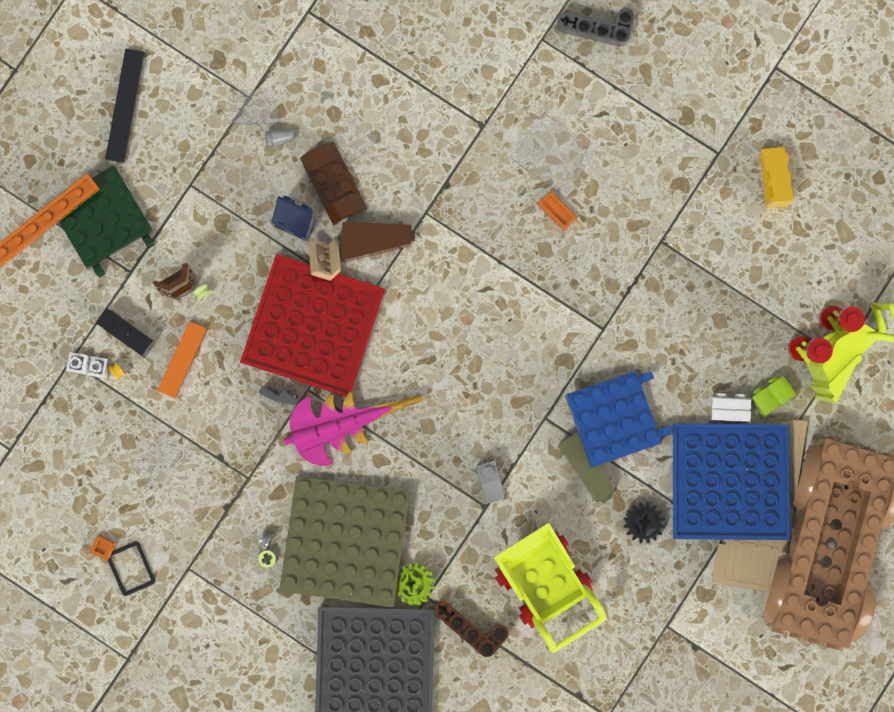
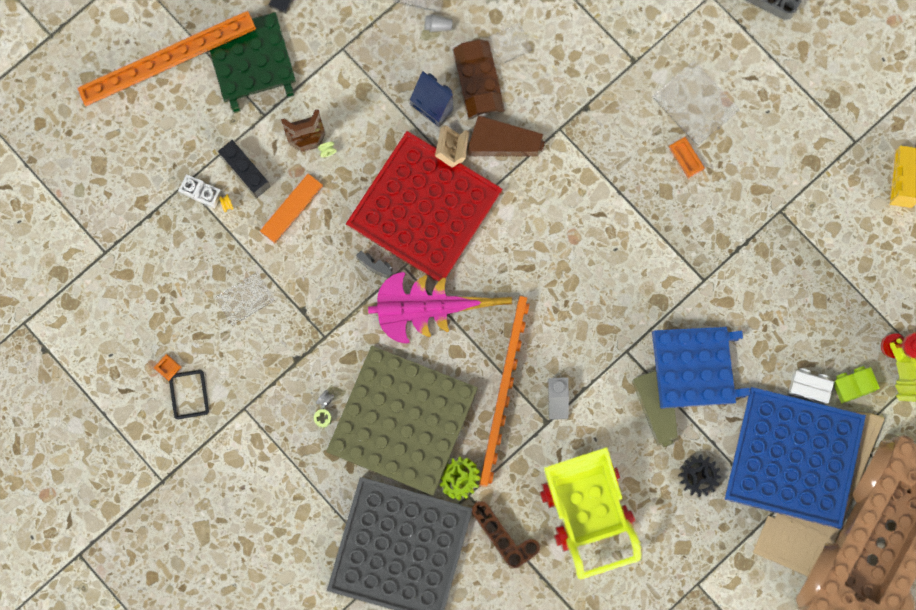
camera: 20 degrees right, 5 degrees down
(436, 496) = (503, 399): none -> orange plate

